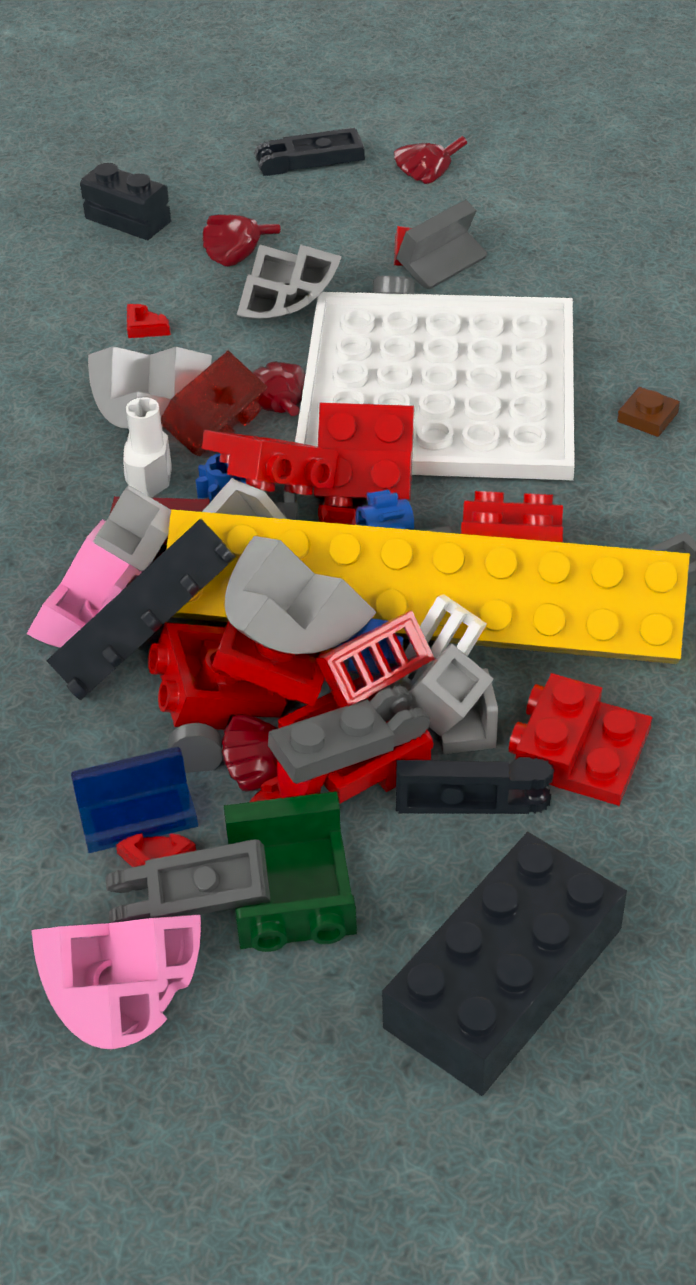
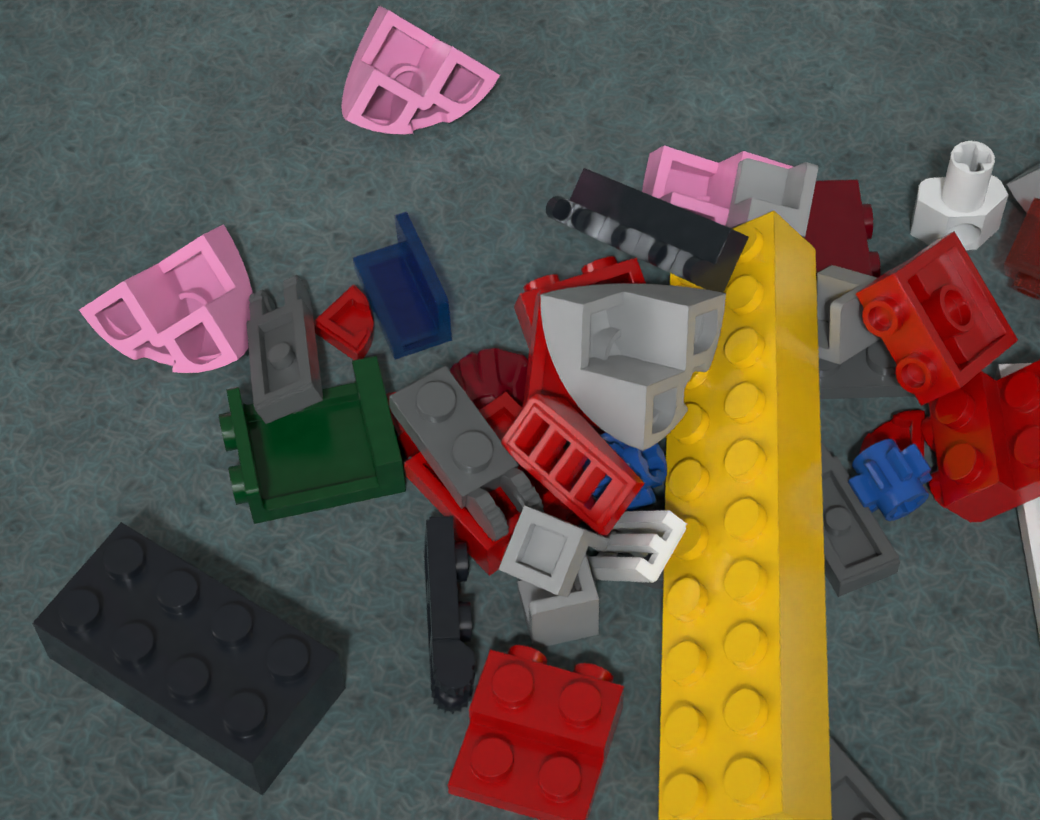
camera: 85 degrees right, 10 degrees up
(199, 746) = (485, 326): dark grey tile -> none
(531, 520) = (897, 628): red plate -> none

